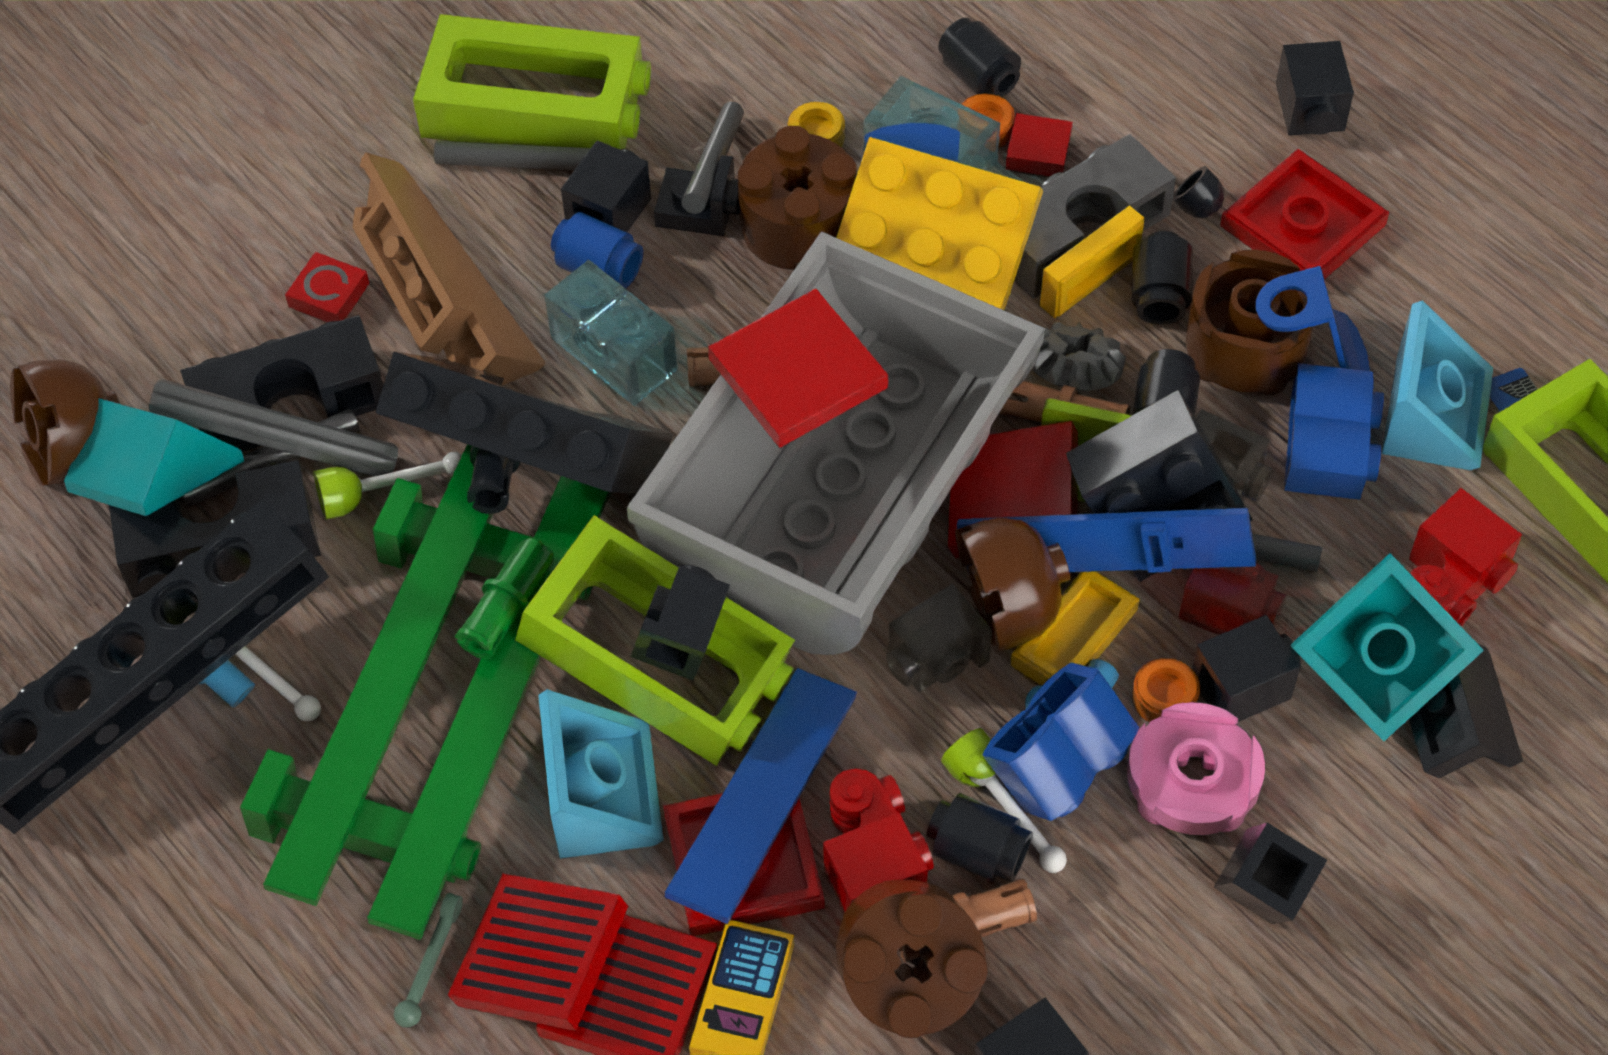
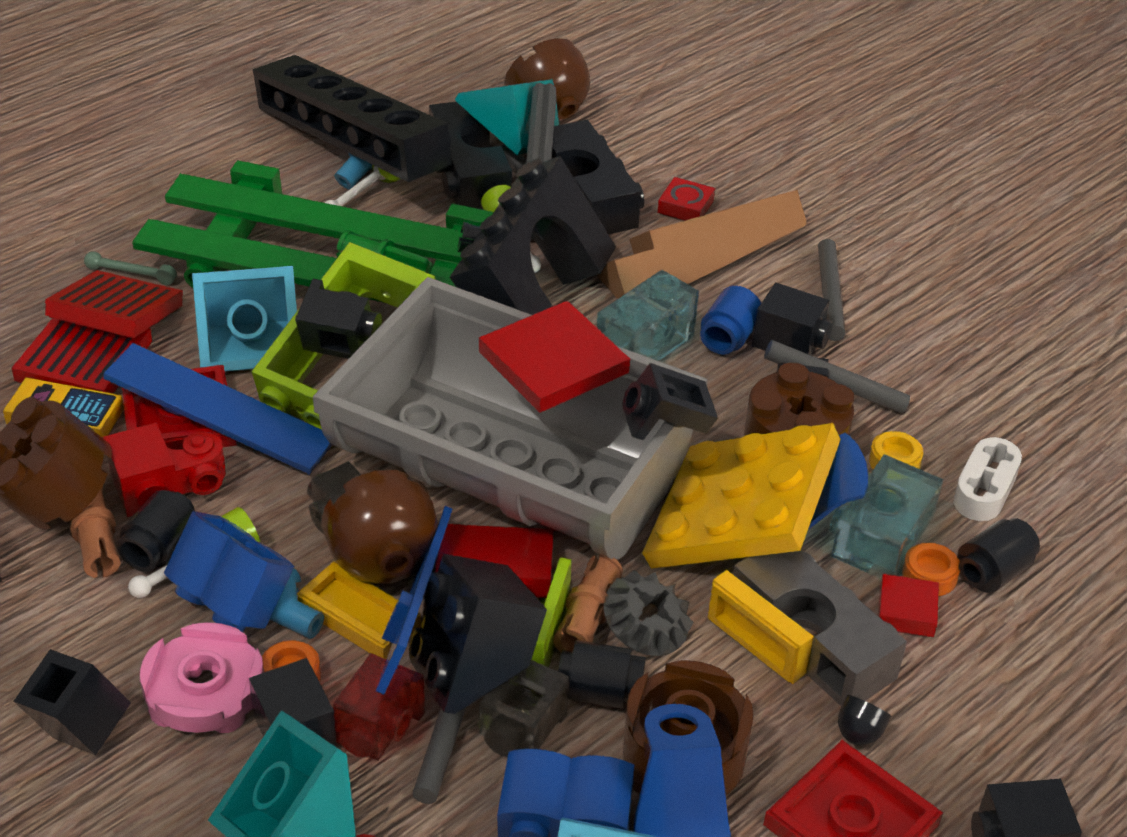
camera: 85 degrees right, 15 degrees down
(527, 117) = (870, 321): lime piece -> none
(854, 55) = (996, 481): none -> white beam
(894, 261) = (669, 397): none -> black bracket
(1162, 277) = (760, 677): black brick -> none

